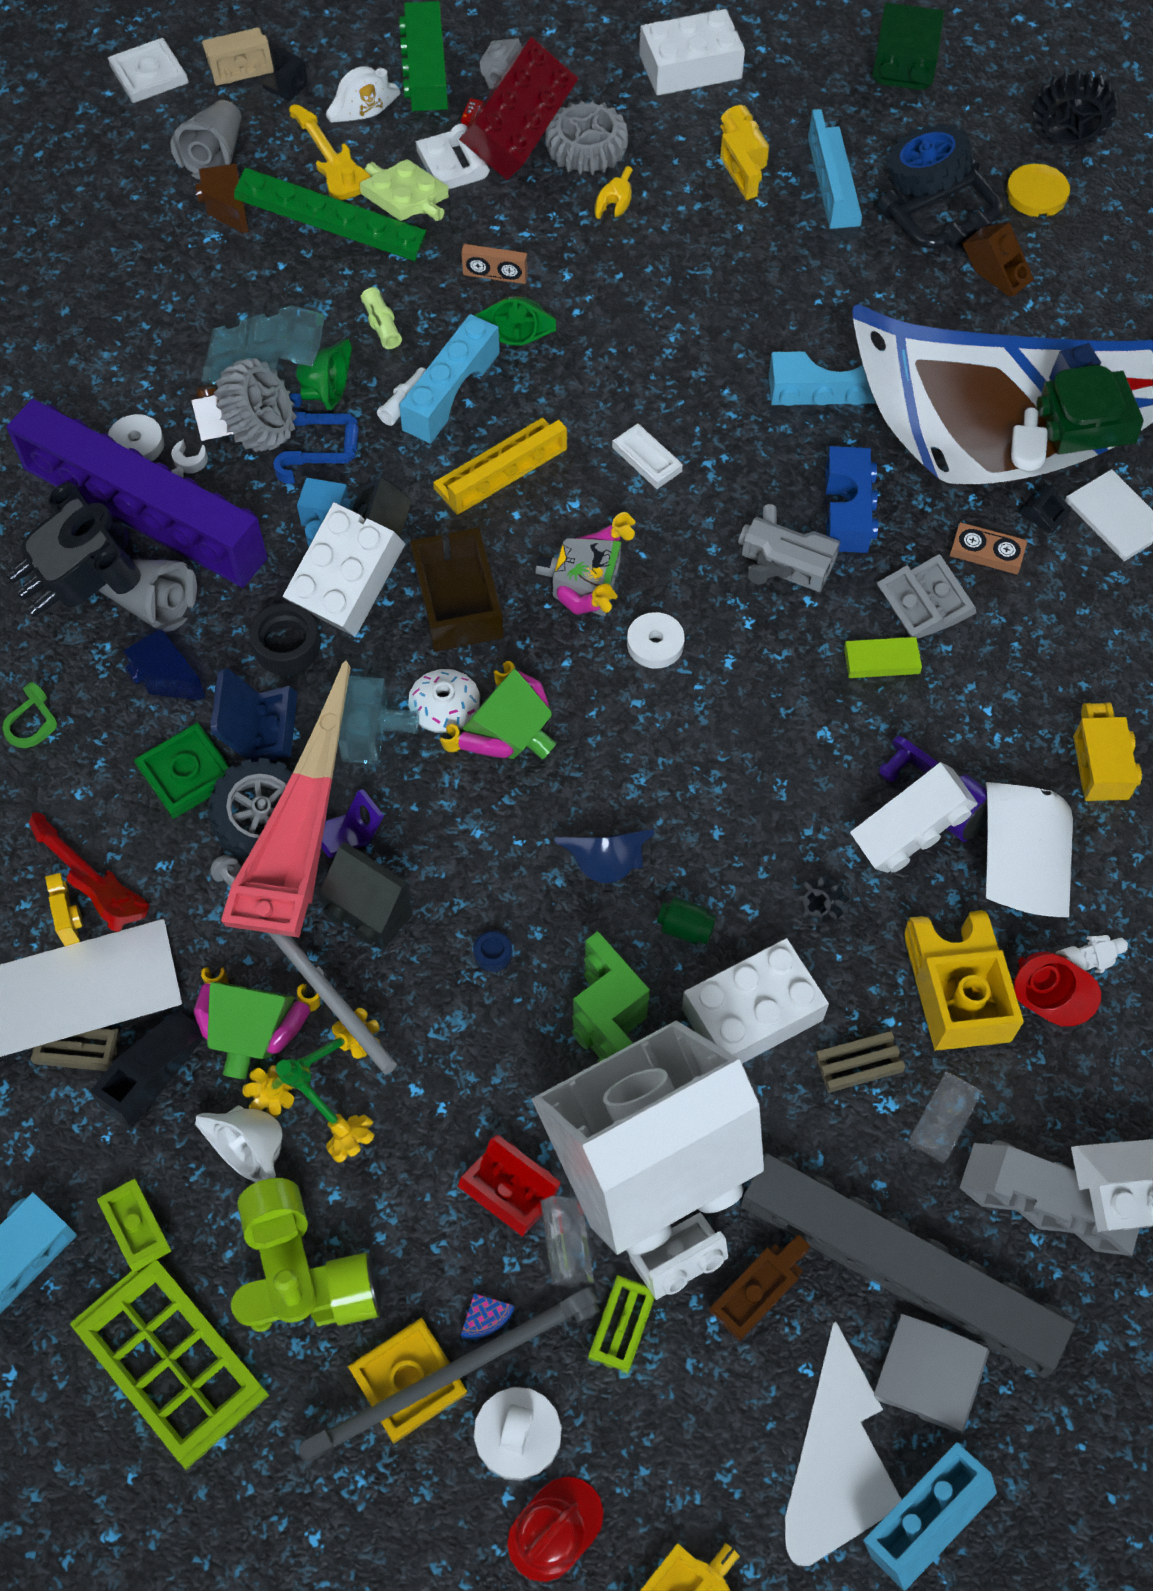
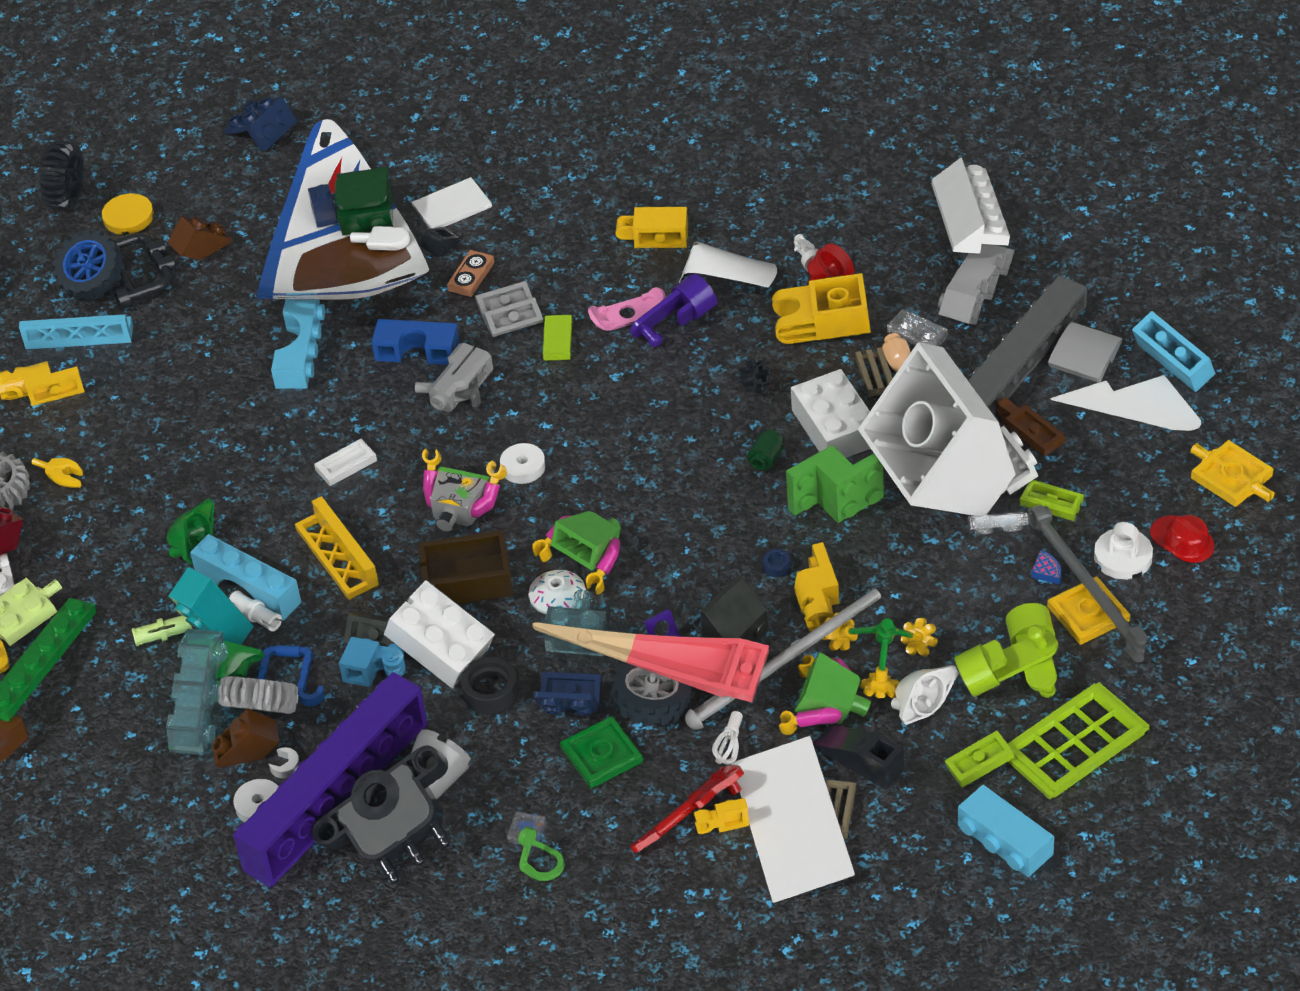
camera: 80 degrees left, 15 degrees down
(74, 702) = (523, 820): none -> clear tile
(162, 668) = (507, 762): clear blue slope -> none
(199, 911) = (731, 732): none -> white piece
(351, 331) = (209, 607): none -> teal brick
(437, 1001) = (817, 588): none -> yellow plate
(494, 264) = (123, 548): nougat tile -> none
(509, 1185) = (956, 548): red bracket -> none
(607, 857) = (706, 489): dark blue hat -> none
(892, 1091) = (895, 351): none -> light nougat plant
(914, 819) = (705, 315): white brick -> none
(926, 712) = (609, 317): none -> bright pink piece

